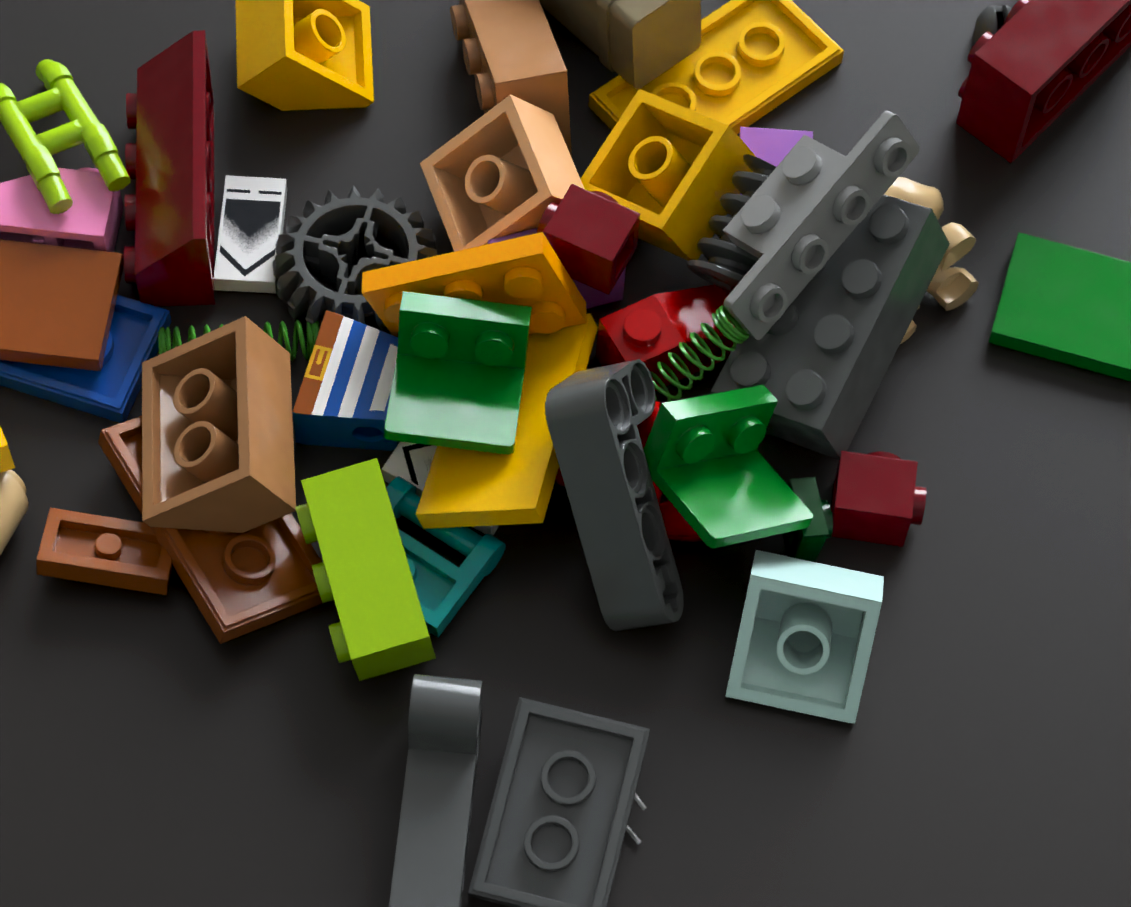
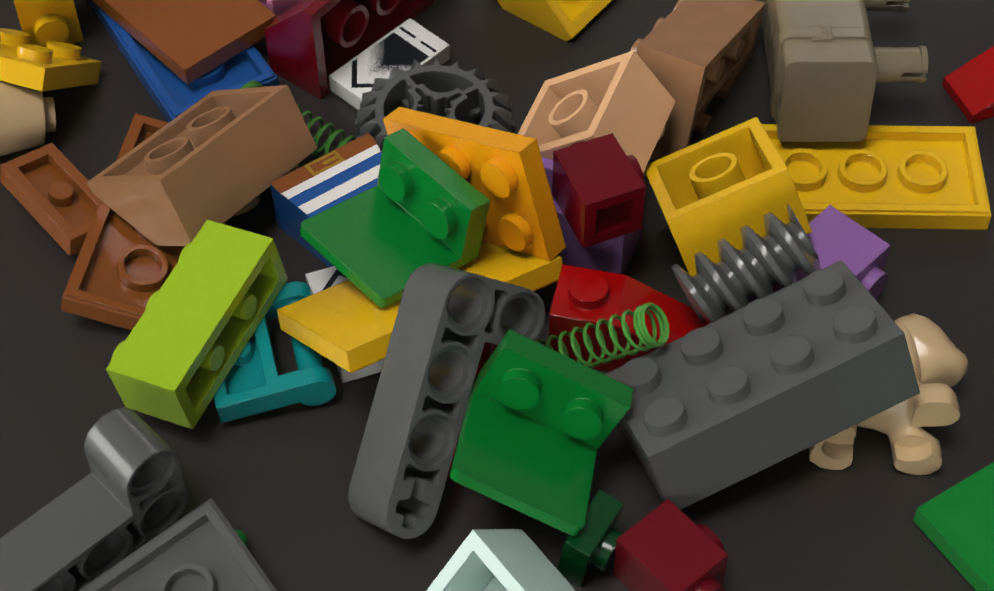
camera: 45 degrees right, 10 degrees down
(807, 214) = (787, 272): light grey bracket -> none

